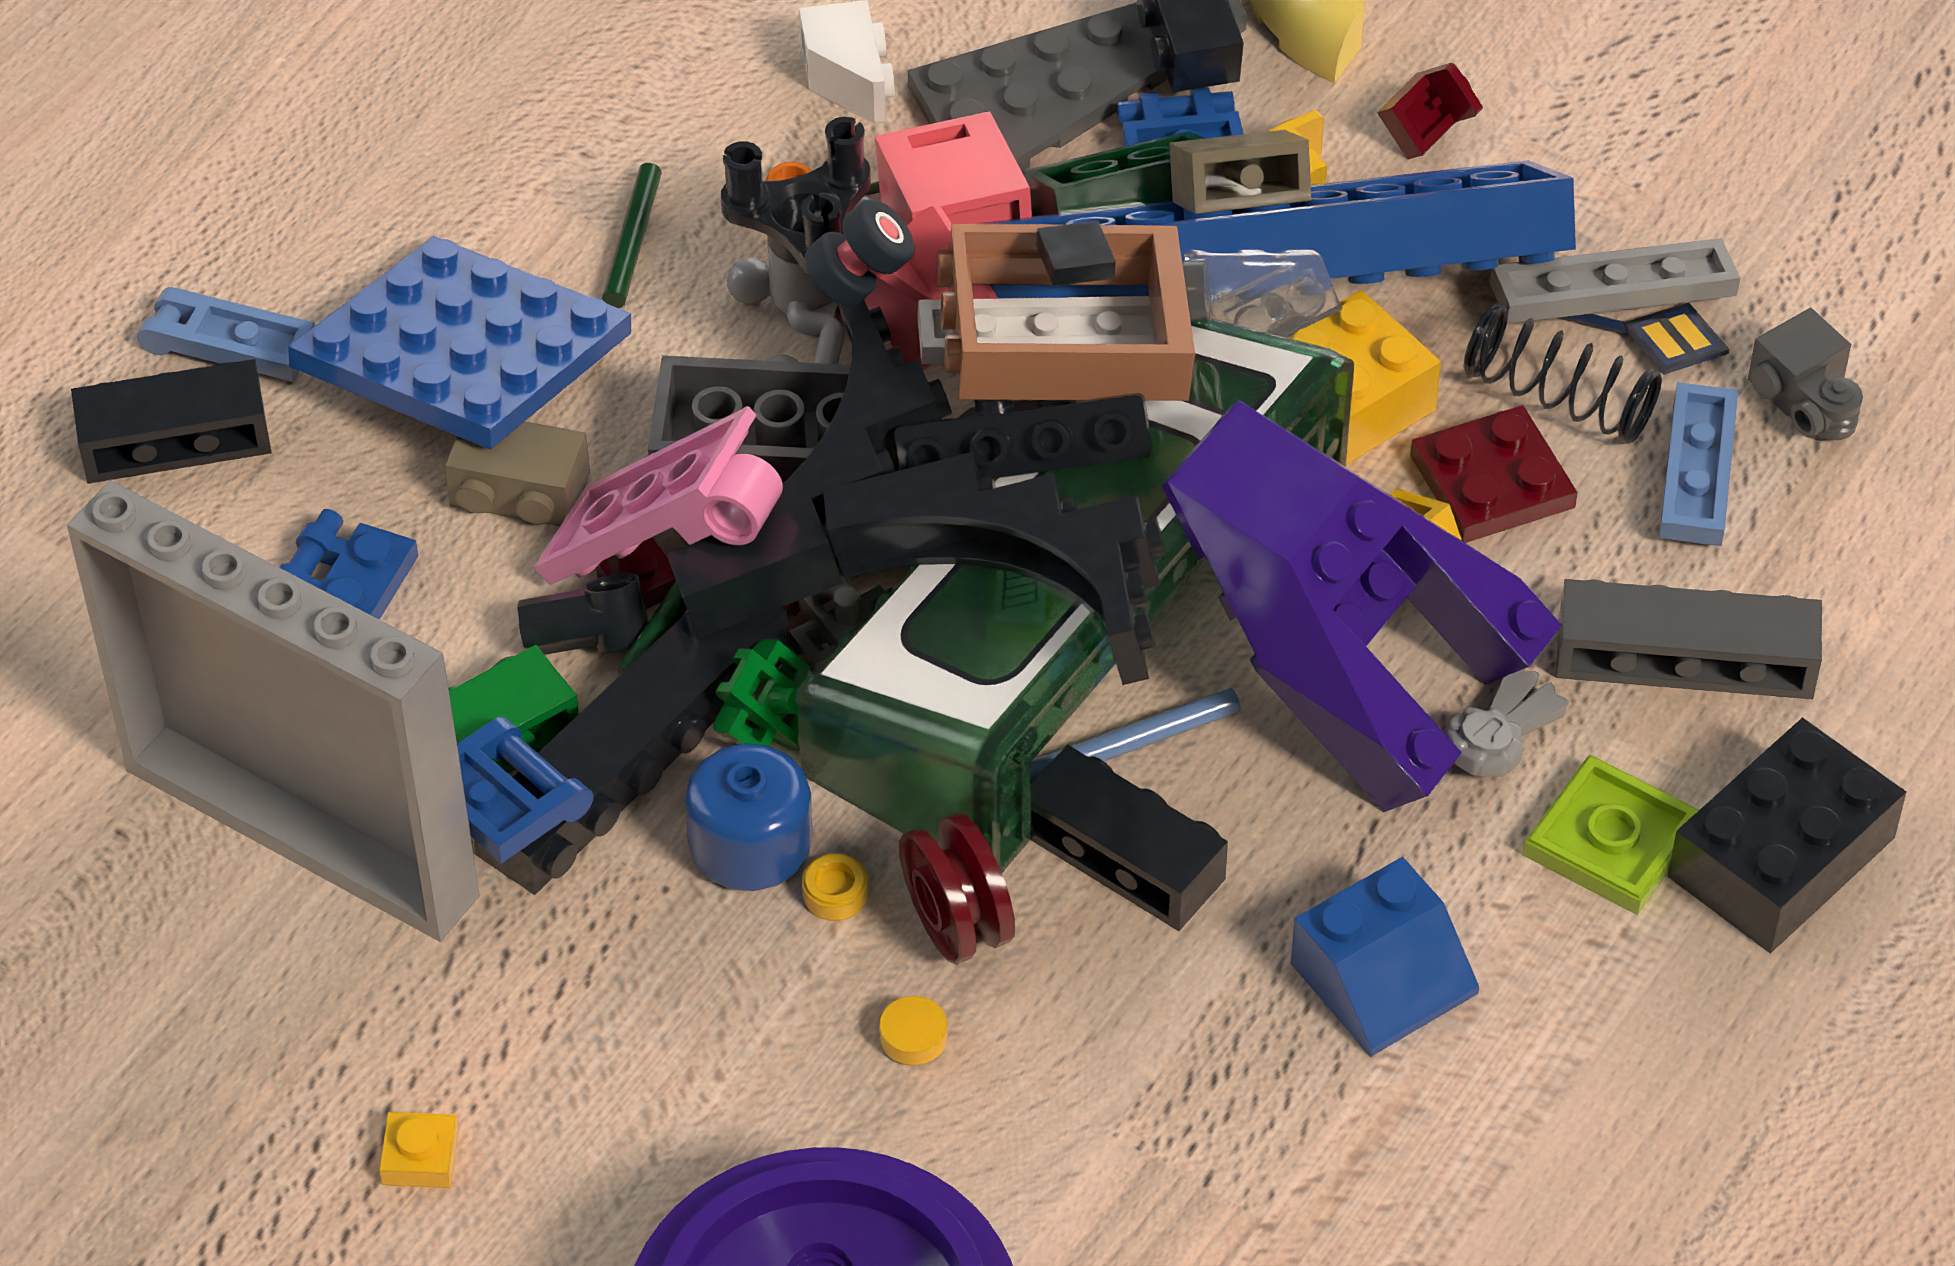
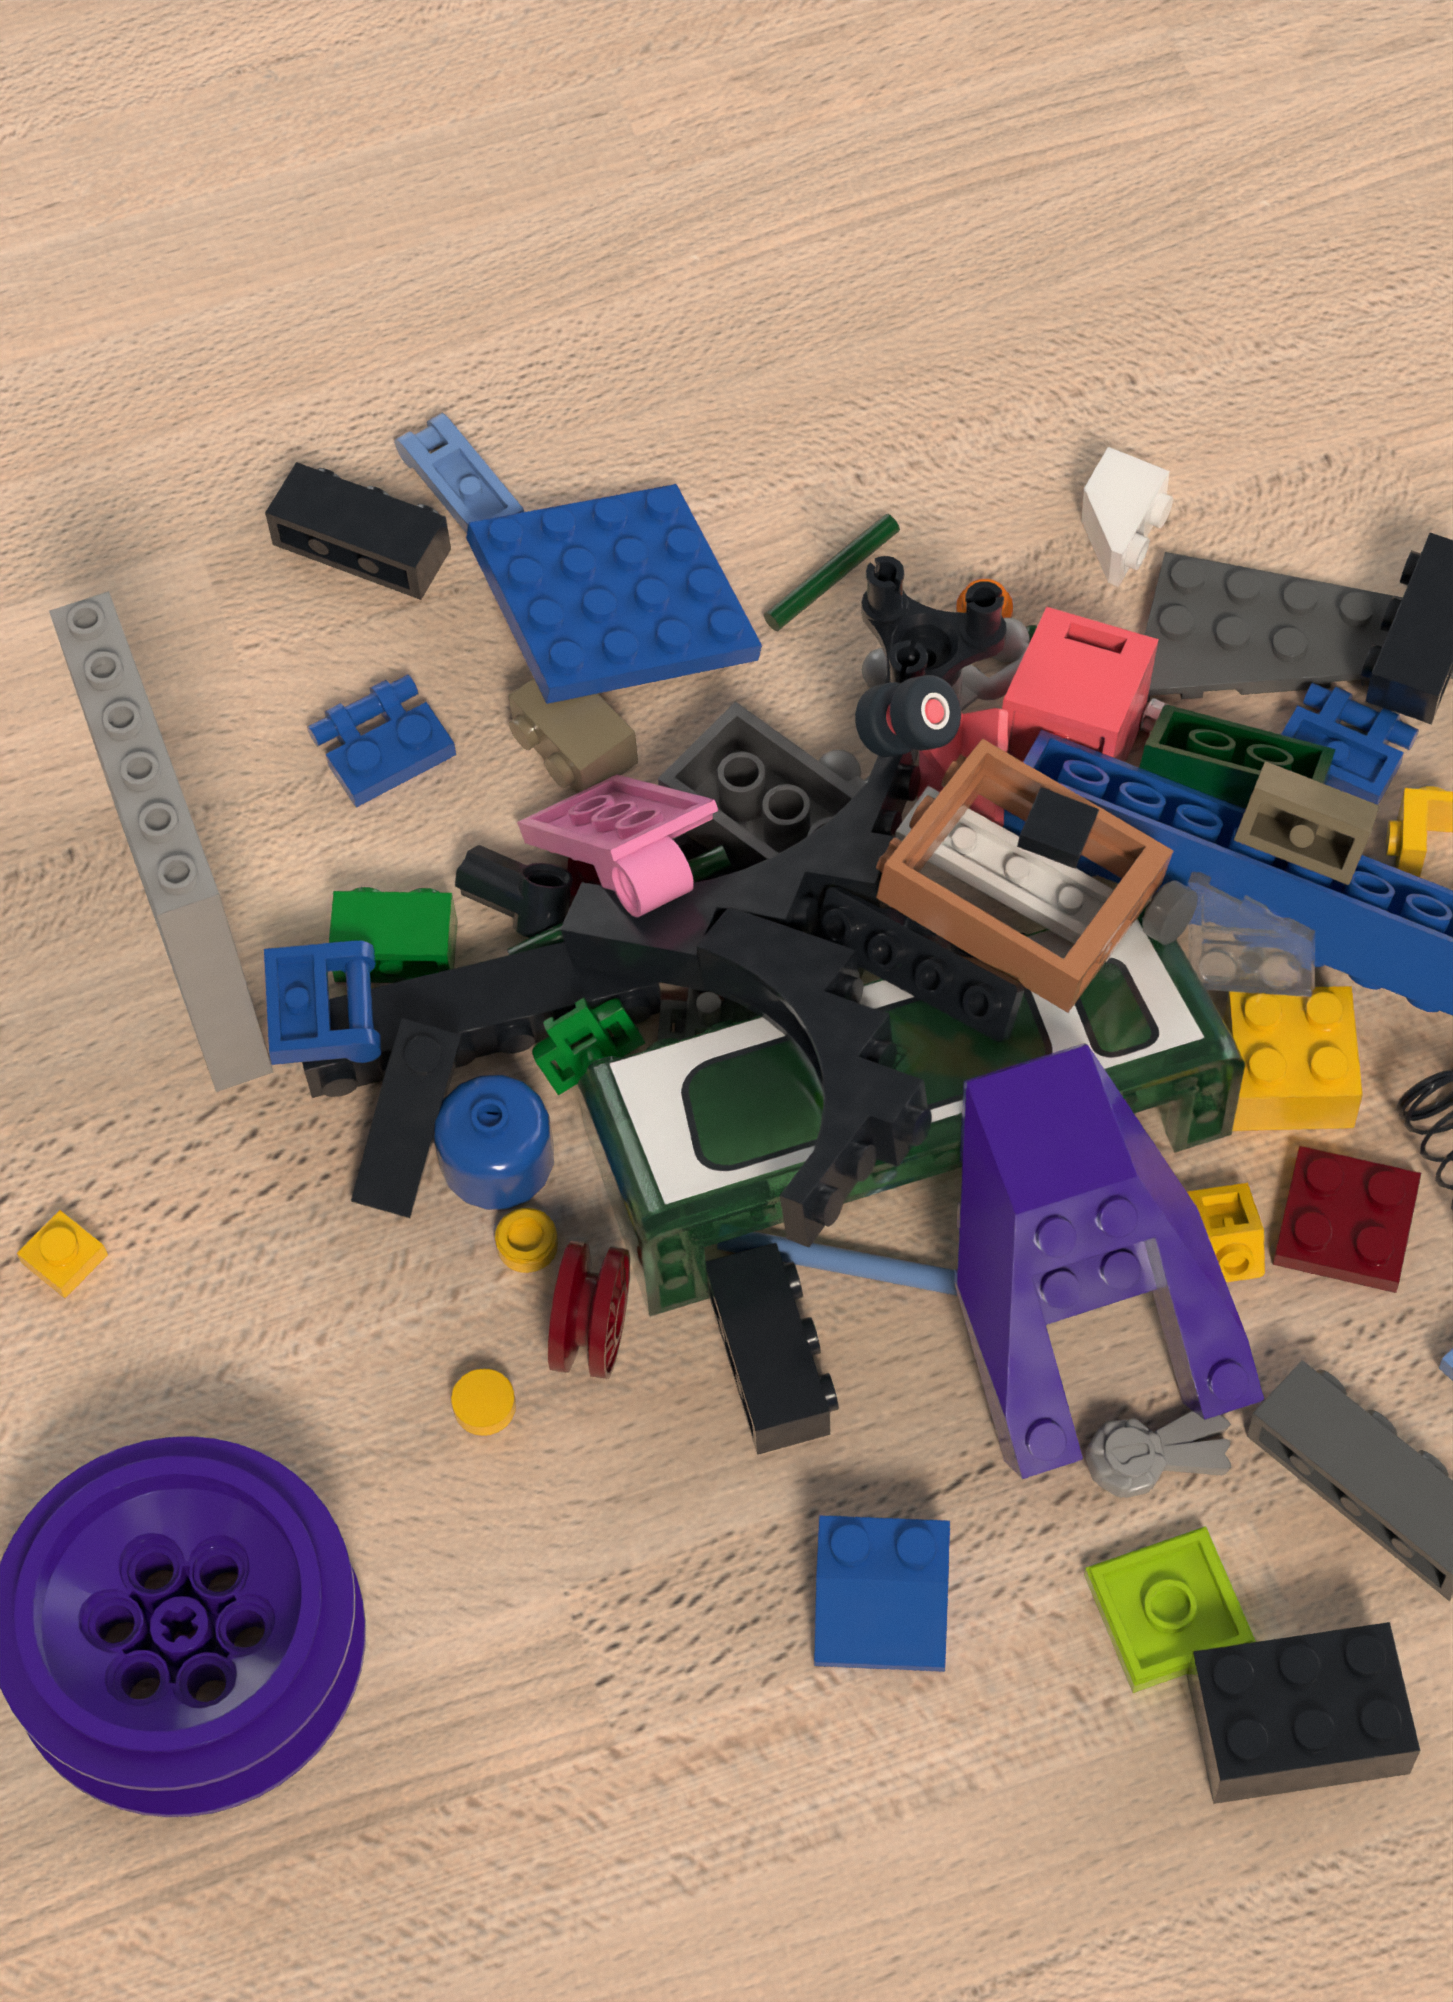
camera: 40 degrees right, 10 degrees up
(656, 834) = (406, 1117): none -> black slope

